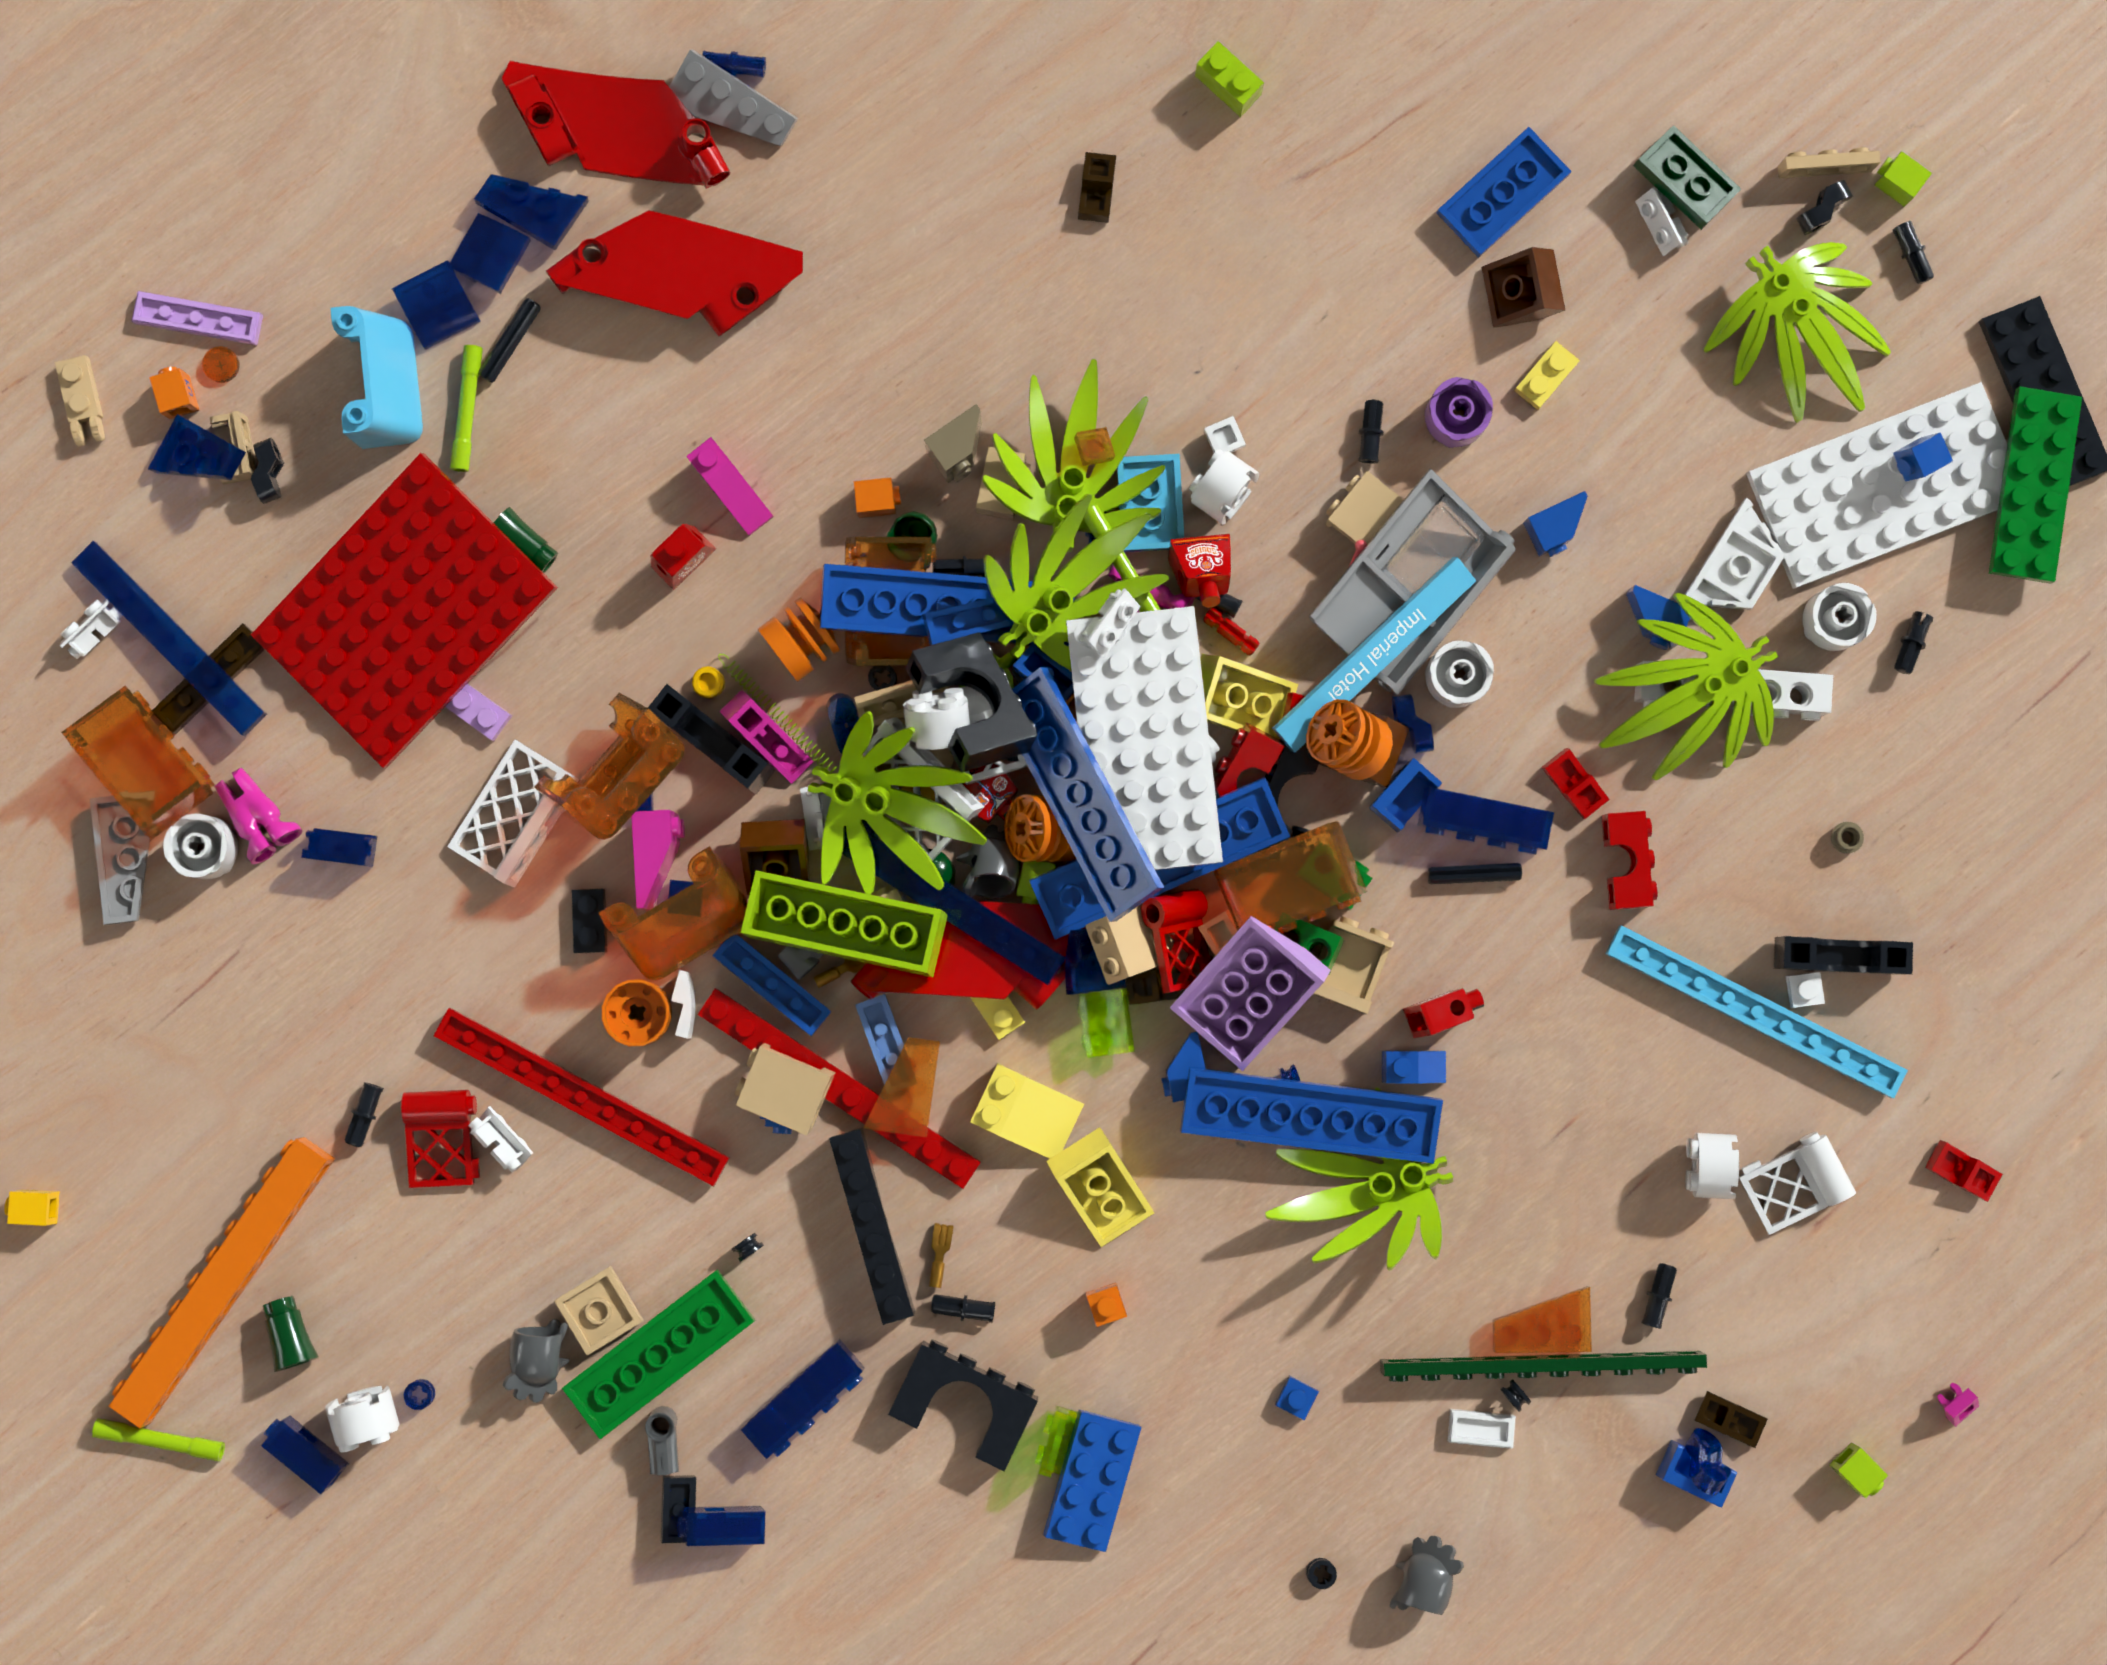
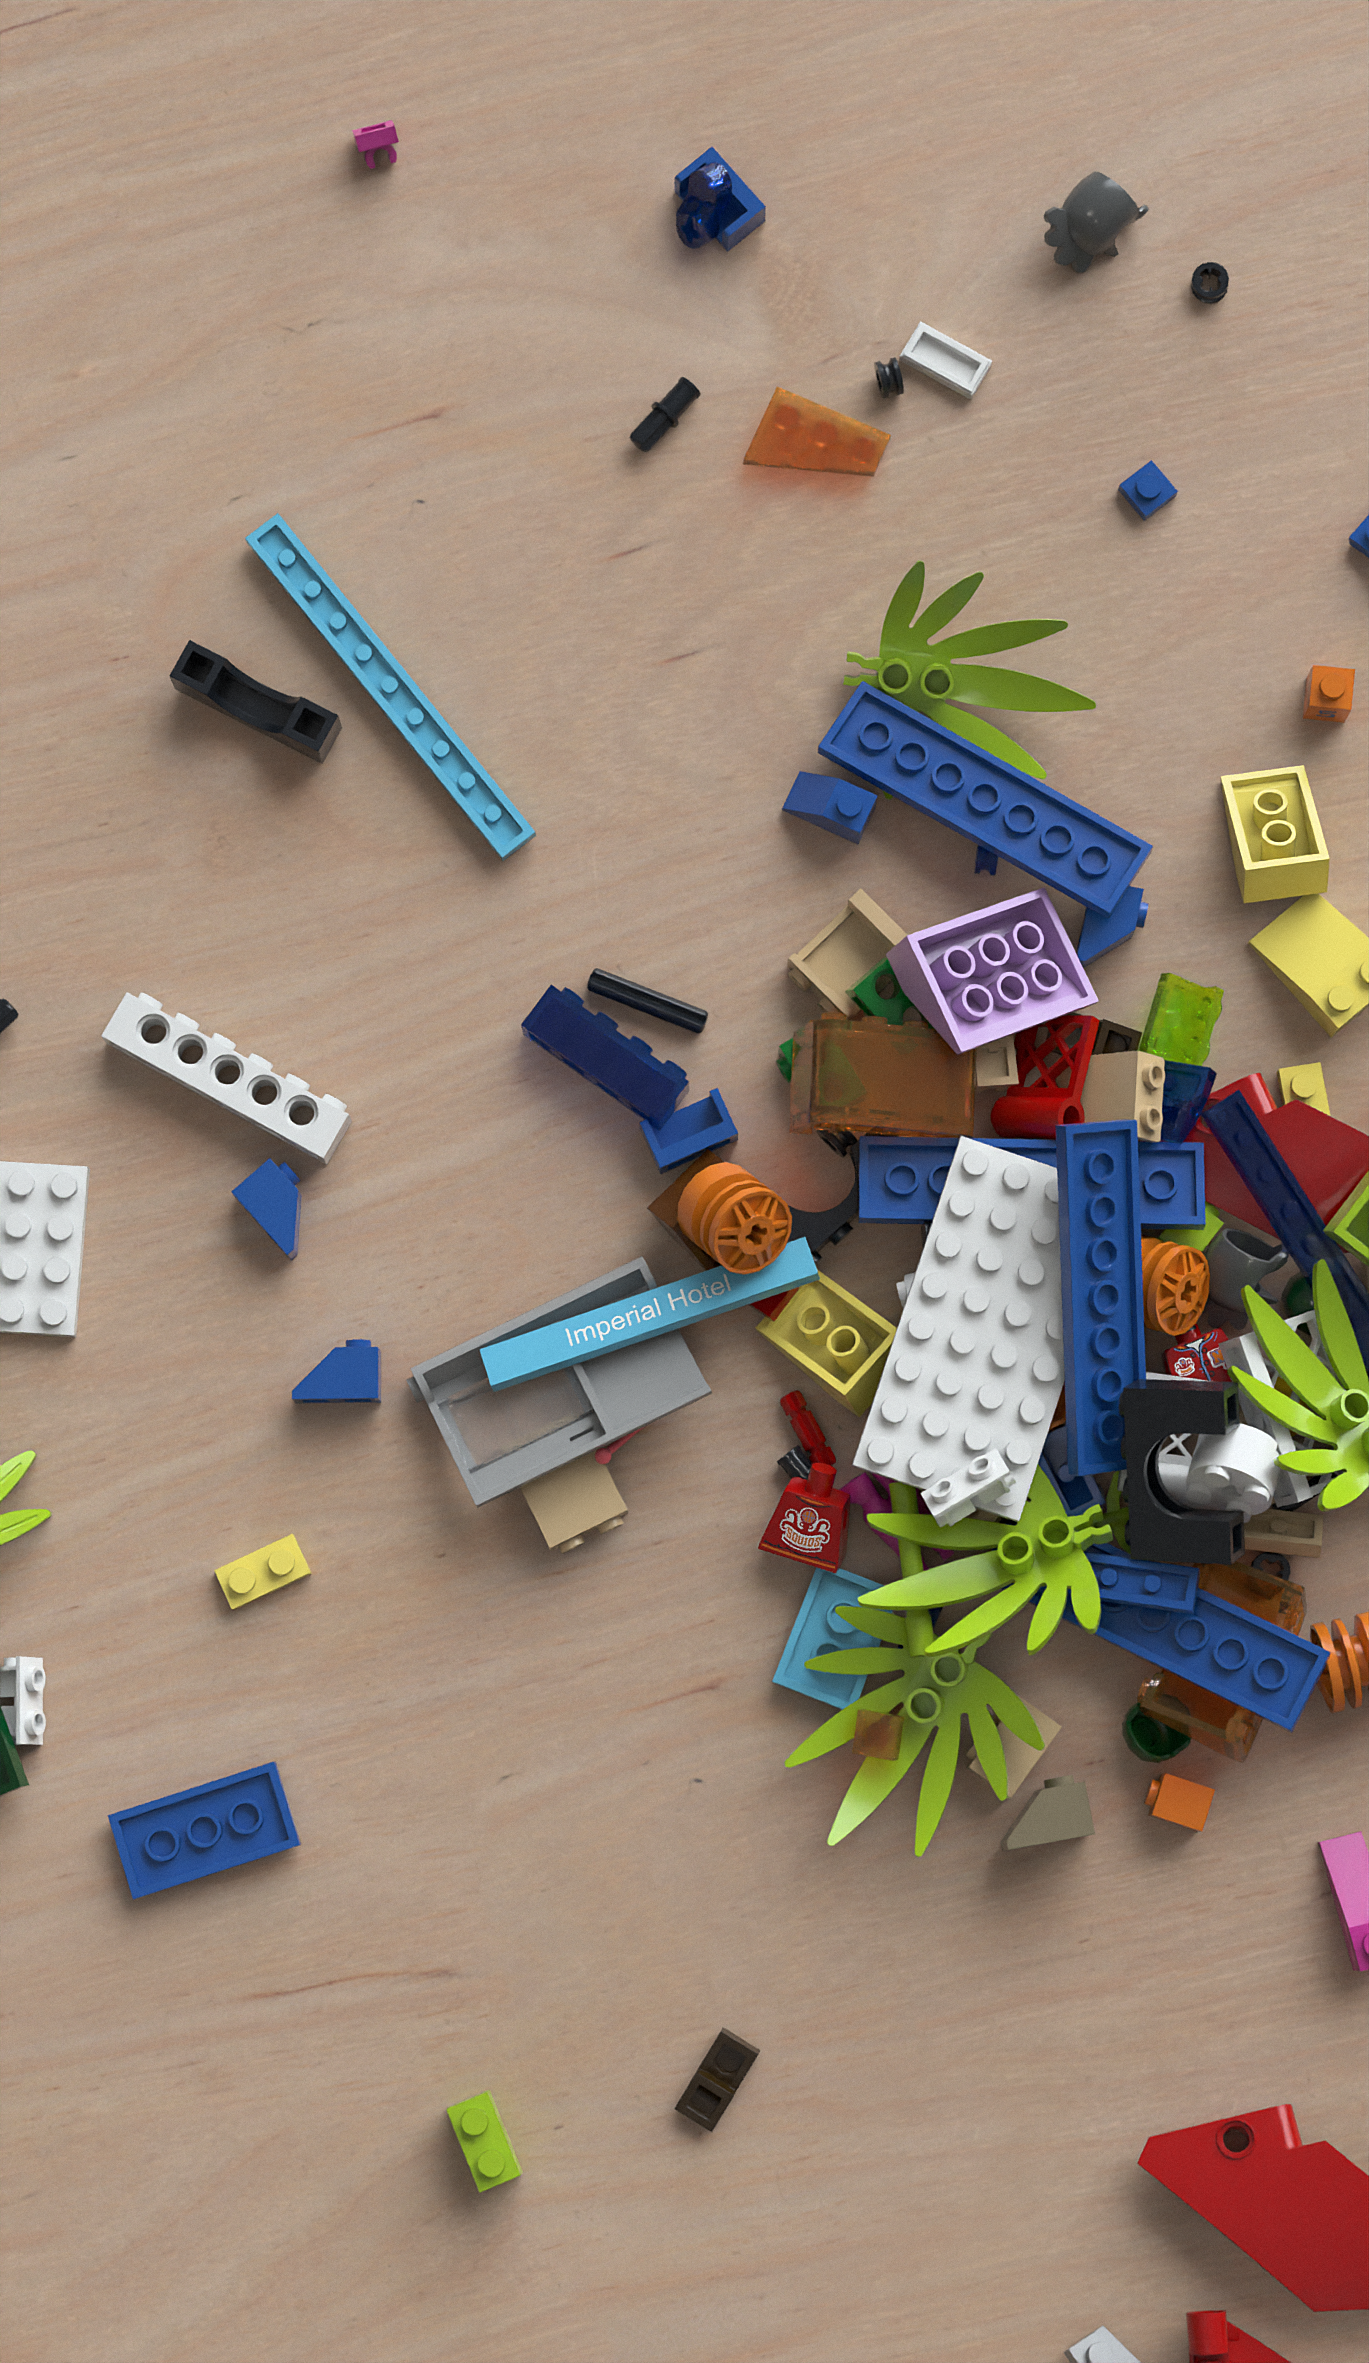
camera: 155 degrees left, 5 degrees down
(840, 711) = (1341, 1551): clear blue piece -> none
(963, 566) = (1107, 1661): black axle -> none
(1223, 486) = (737, 1611): white brick -> none
(1225, 436) = (704, 1677): white plate -> none
(1250, 750) = (856, 1266): red arch -> none
(1371, 431) = (516, 1601): black axle -> none
(1419, 730) = (633, 1202): clear blue piece -> none
(1442, 1012) = (782, 856): red torso -> none
(1458, 394) = (379, 1556): medium lavender brick -> none
(1459, 692) = (533, 1232): white brick -> none
(1523, 287) = (240, 1694): reddish brown slope -> none
(1557, 1365) = (857, 403): dark green plate -> none
(1575, 783) = (473, 1053): red slope -> none
(1631, 833) = (465, 895): red arch -> none
(1713, 1165) = (531, 529): white brick -> none
(1721, 677) = (244, 1088): lime plant -> none
(1731, 1419) = (647, 242): dark brown slope -> none
(1738, 563) = (144, 1227): white wing -> none
(1805, 990) = (318, 684): white plate -> none
(1821, 1171) = (404, 469): white piece -> none
(1853, 607) = (50, 1126): white brick -> none
(1856, 833) = (171, 829): dark tan plate -> none
(1859, 1470) = (529, 119): lime brick -> none
(1964, 1170) = (235, 397): red slope -> none

